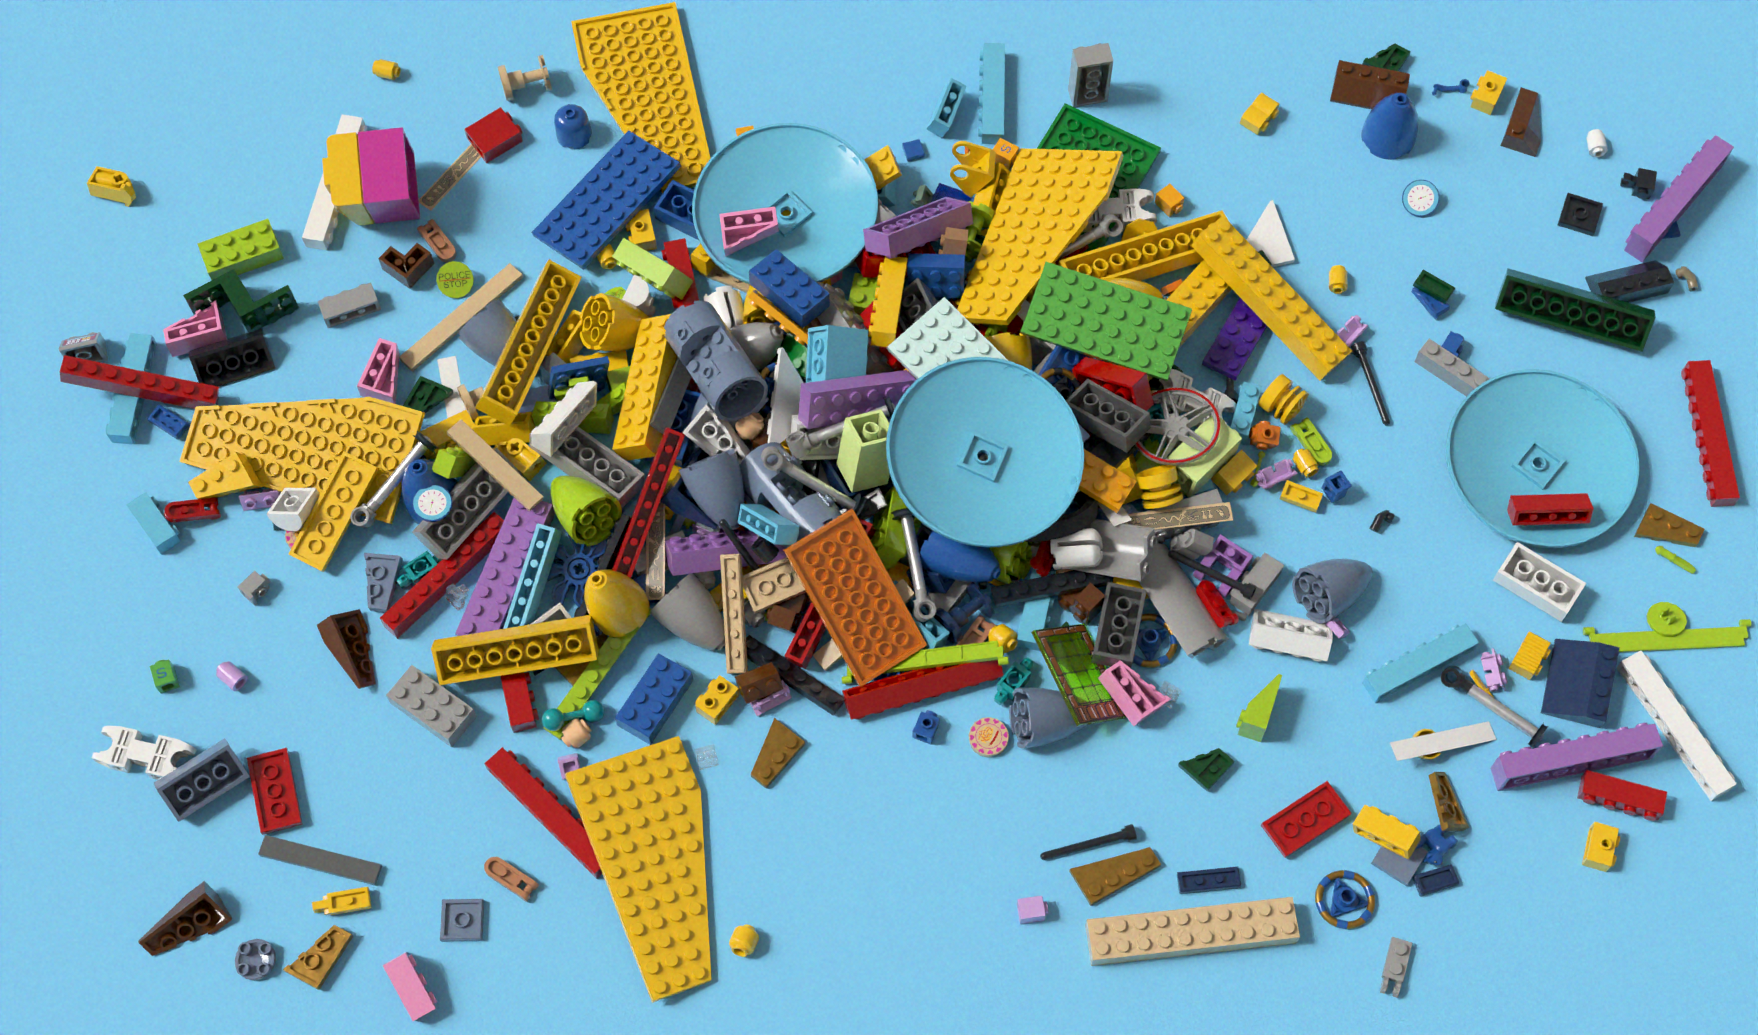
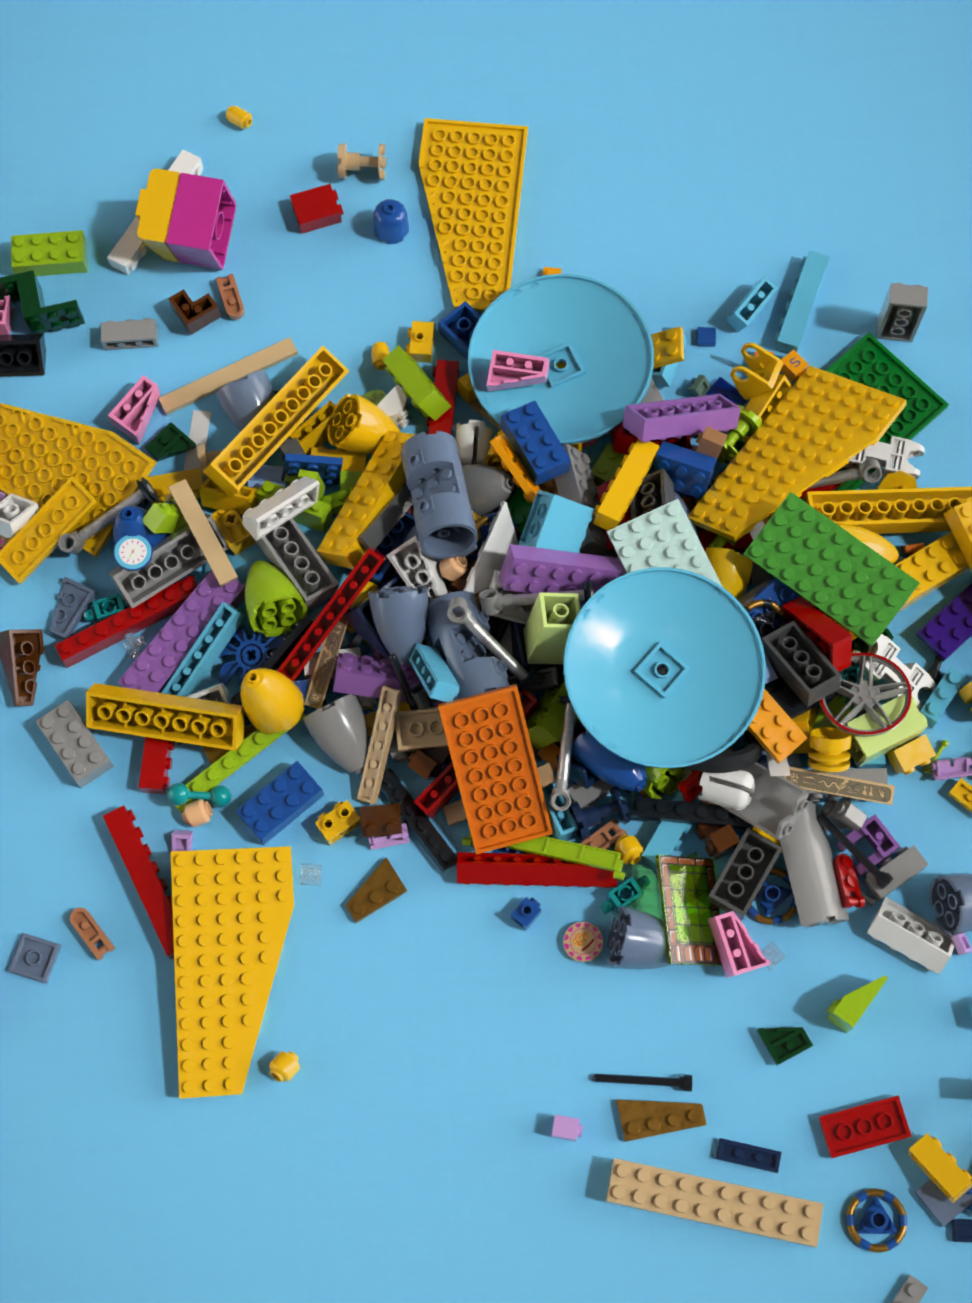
camera: 20 degrees right, 5 degrees up
(450, 178) = (263, 238): sticker -> none
(455, 279) = (233, 338): lime piece -> none
(606, 199) = (398, 302): blue plate -> none
(1169, 200) = (939, 460): light orange brick -> none
(1264, 435) = (953, 726): orange brick -> none

